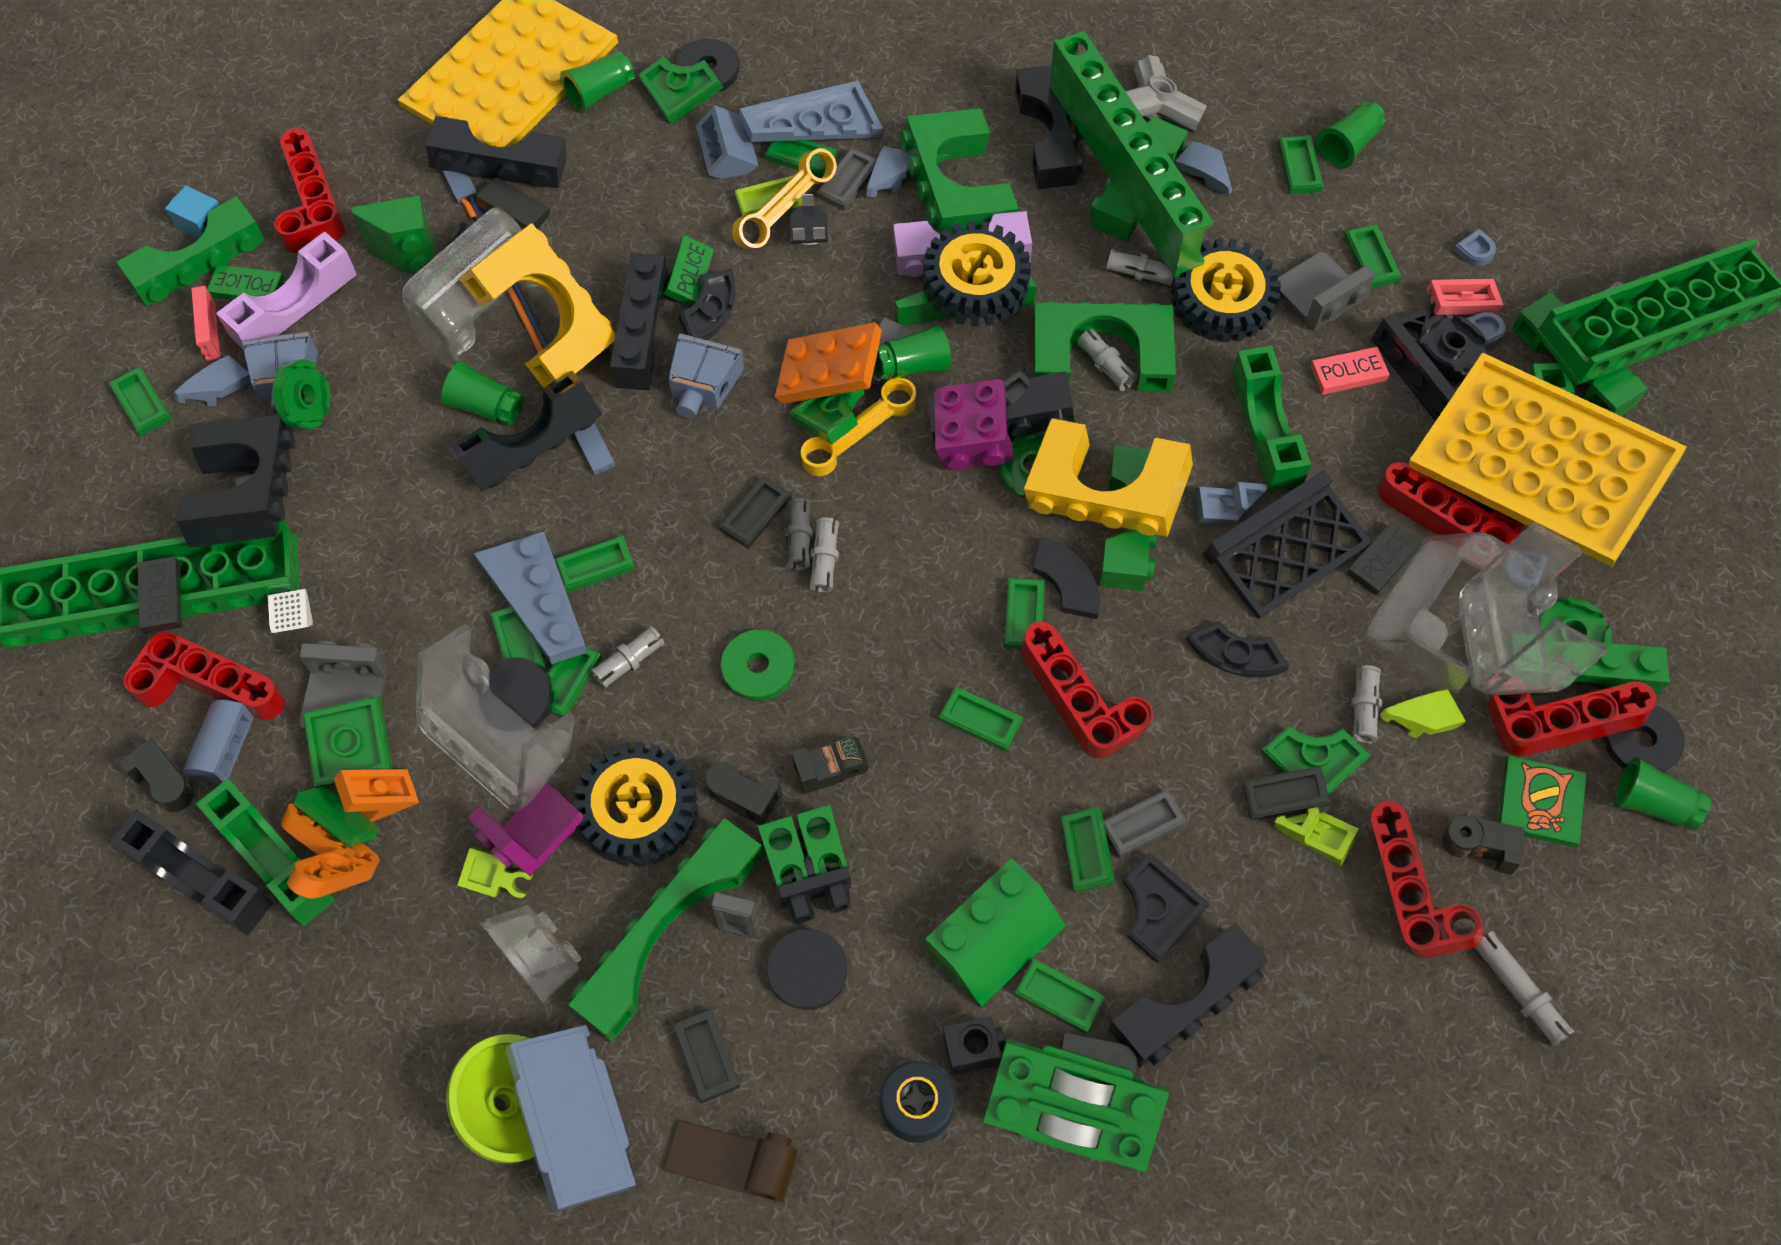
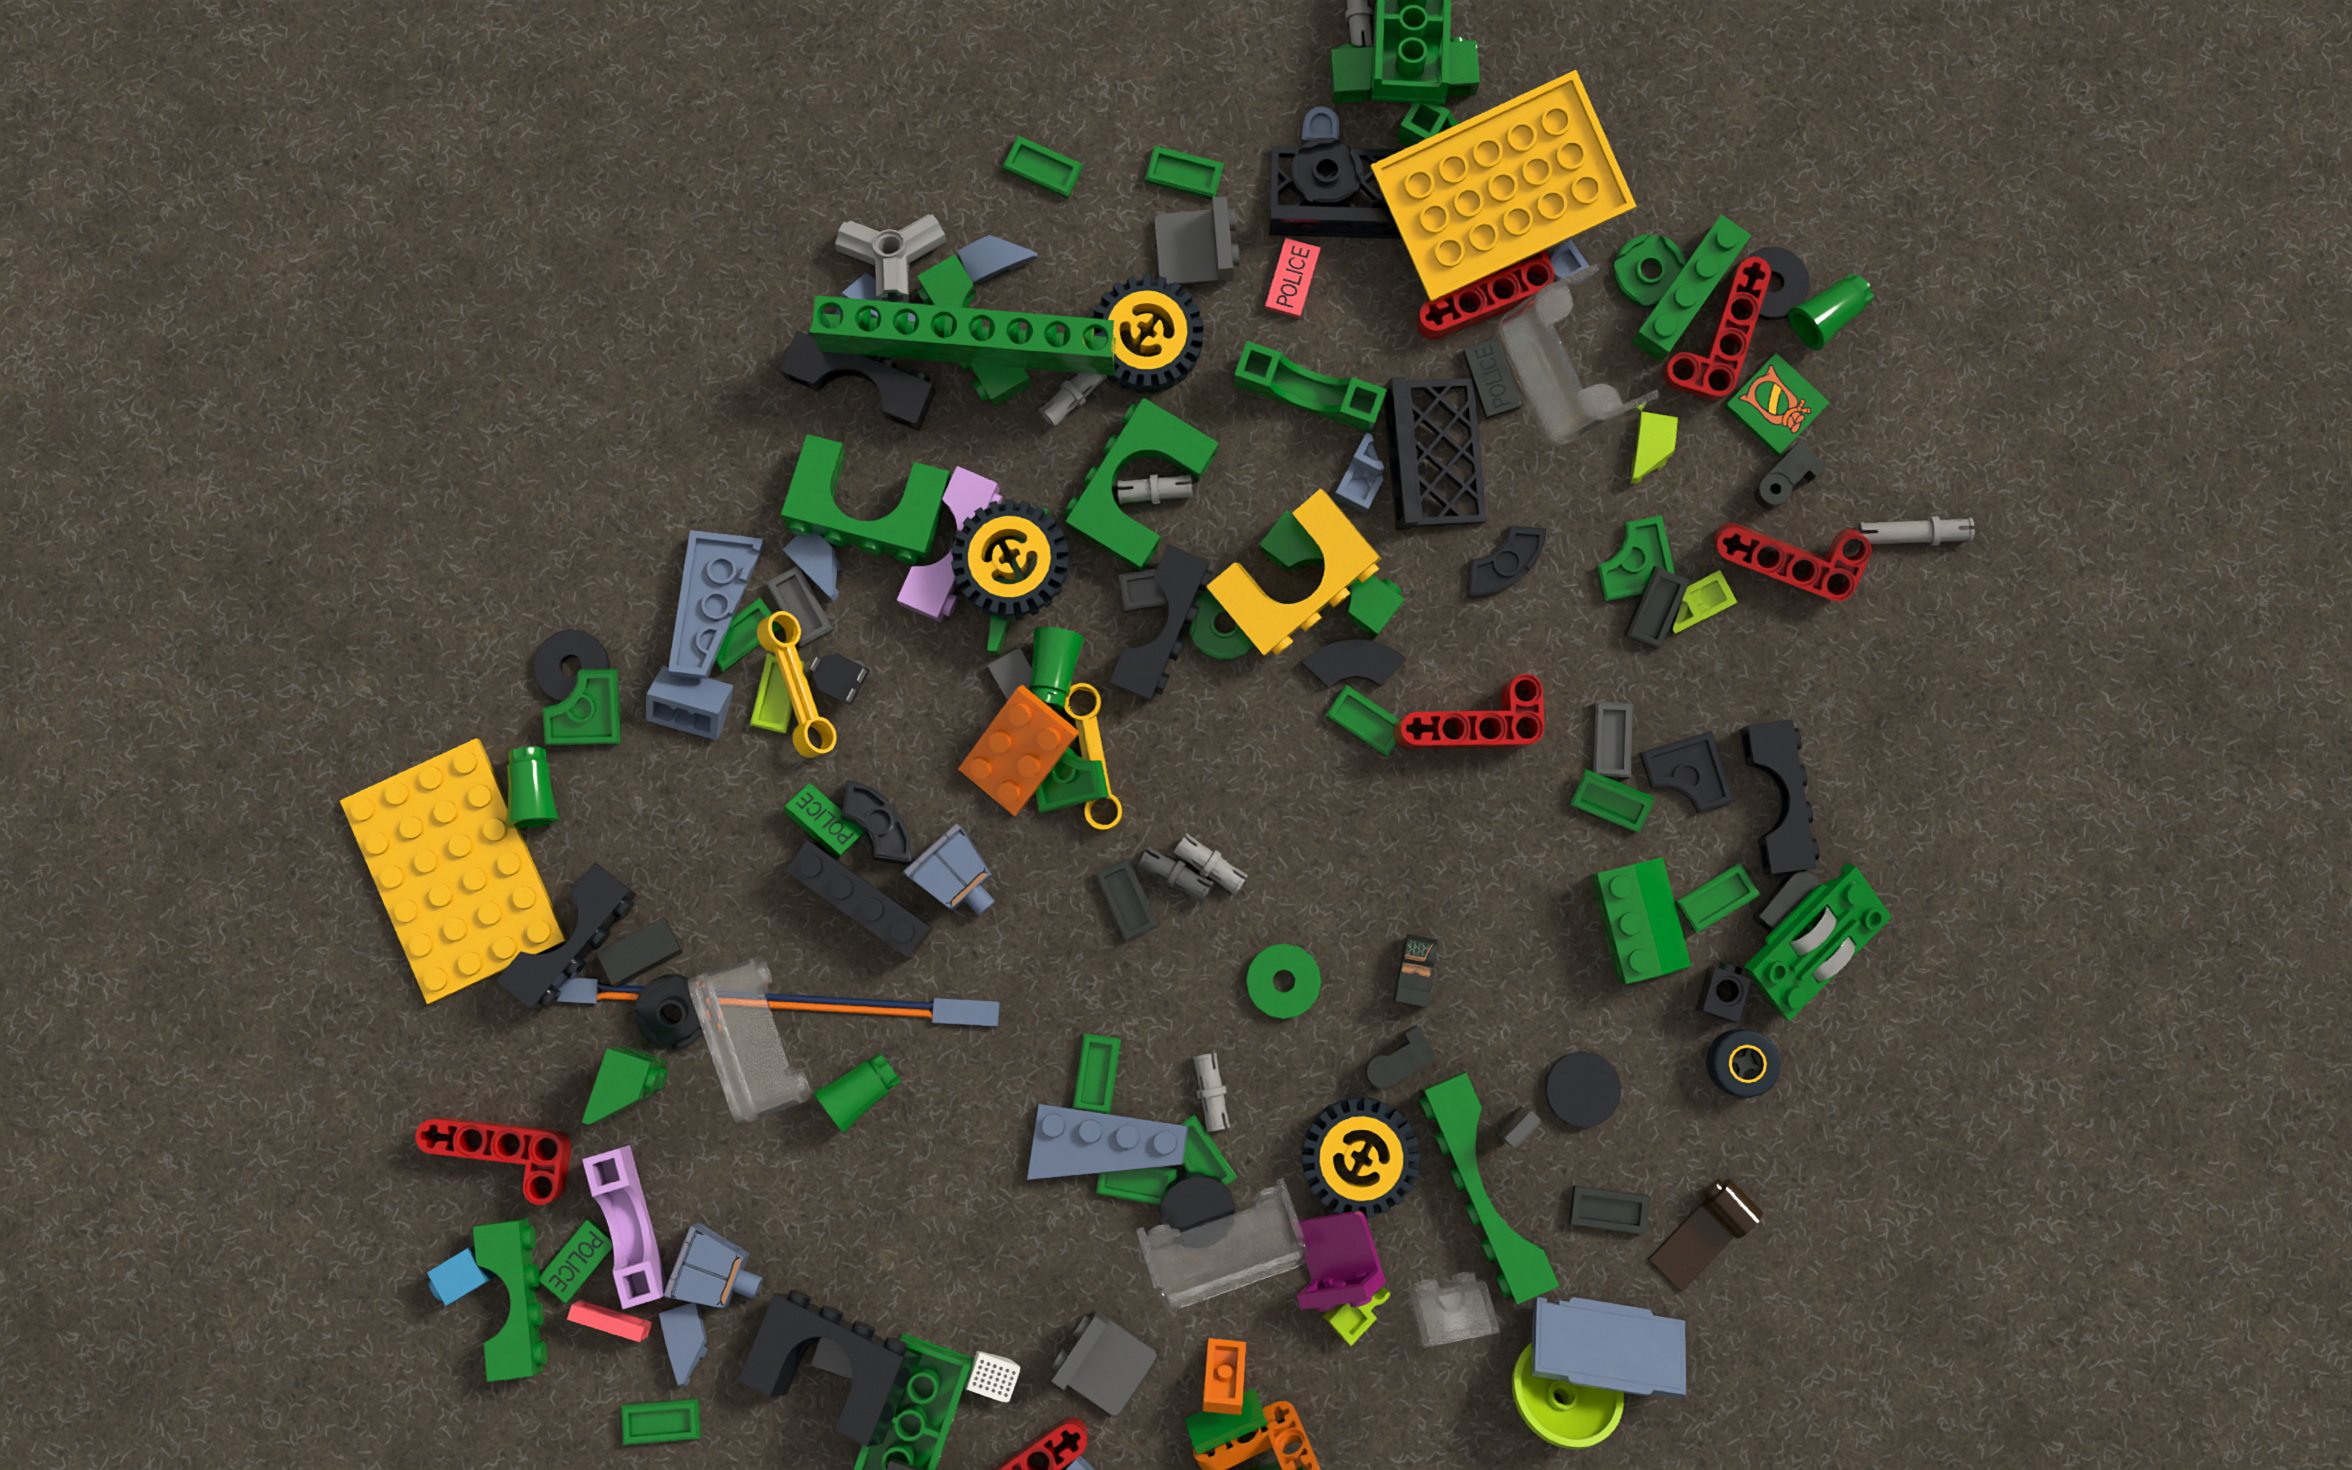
camera: 60 degrees left, 20 degrees up
(287, 394) = (762, 1265): green tile -> none
(347, 739) = (1157, 1380): green tile -> none
(529, 258) = (847, 963): yellow arch -> none
(564, 411) = (936, 1112): black arch -> none
(809, 875) = (1508, 1040): green hips -> none
(972, 425) = (1162, 657): magenta bracket -> none
(980, 719) = (1443, 818): green tile -> none
(1349, 135) = (1043, 98): green plant -> none
(1366, 704) = (1616, 487): light grey pin -> none
(1465, 302) = (1269, 148): coral tile -> none
(1476, 248) = (1233, 72): sand blue tile -> none
(1503, 625) = (1637, 338): clear windscreen -> none

